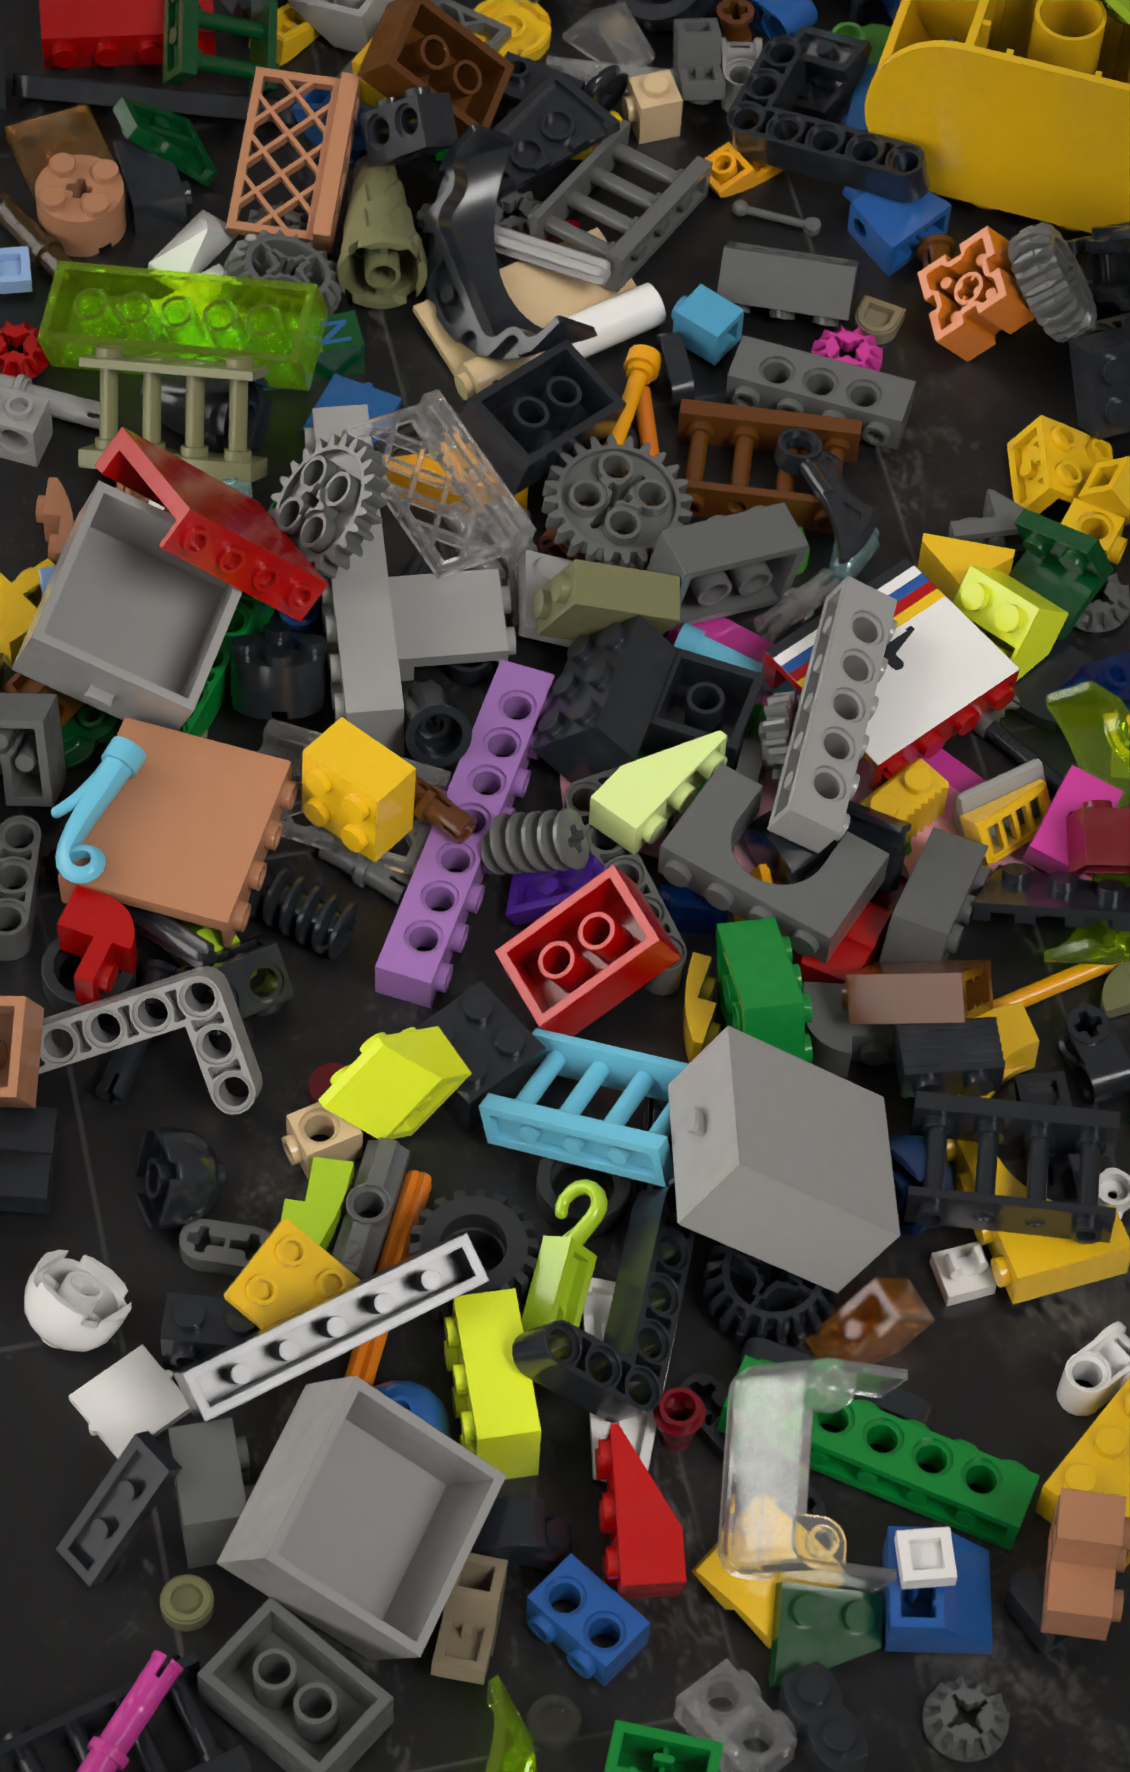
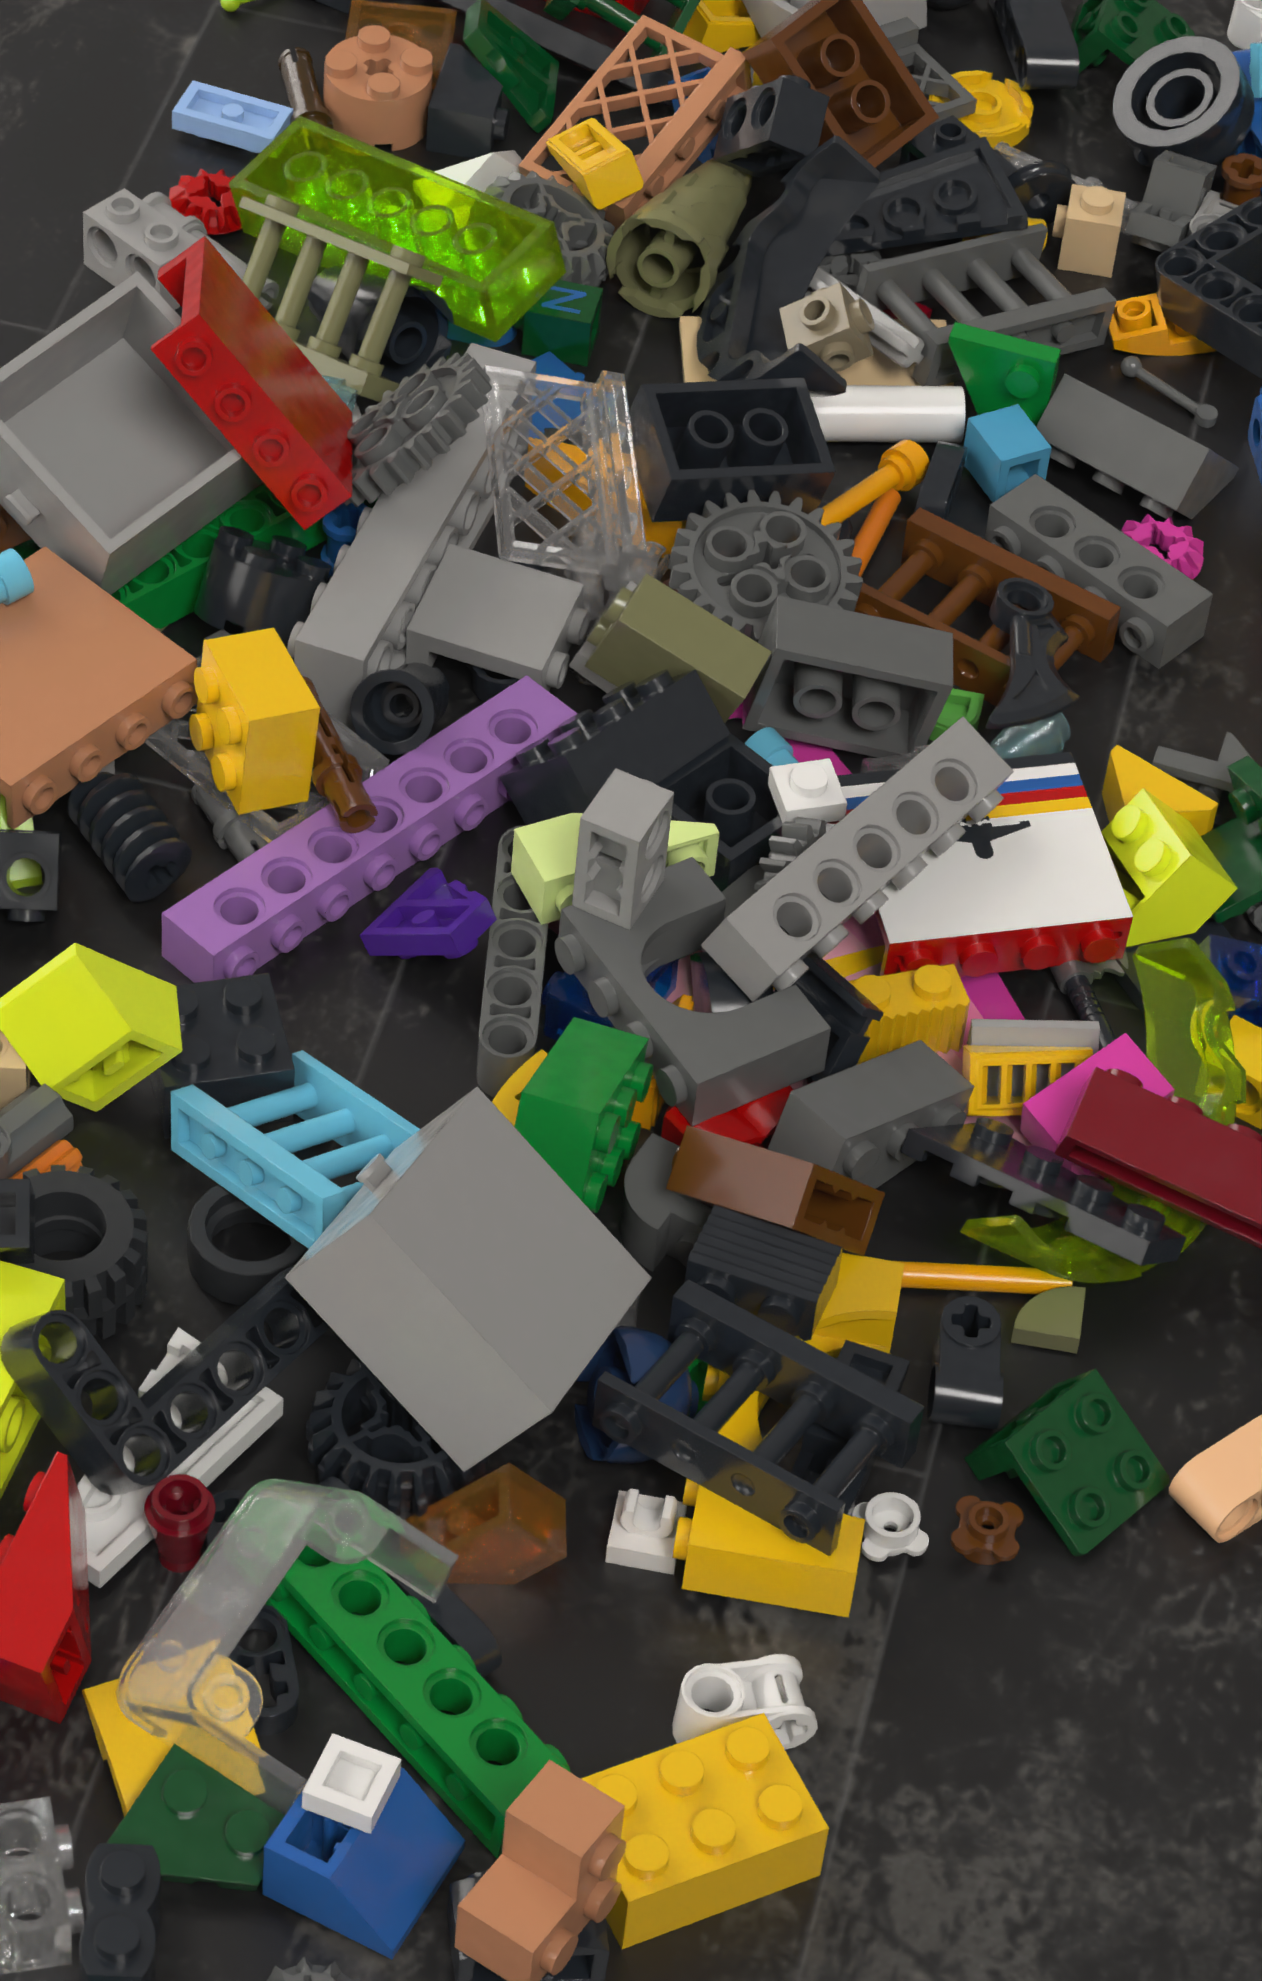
camera: 25 degrees right, 10 degrees down
(293, 207) = (596, 163): none -> yellow slope
(536, 842) = (429, 859): dark grey piece -> none
(537, 279) = (830, 326): none -> dark tan brick
(564, 1264) = (159, 1299): lime piece -> none
(588, 953) = (411, 994): red brick -> none
(610, 36) = (1092, 149): clear slope -> none
(680, 263) = (1004, 370): none -> green wing
(693, 787) = (622, 848): none -> light grey brick
(758, 673) = (807, 791): none -> white plate
(879, 319) = (1223, 532): dark tan tile -> none

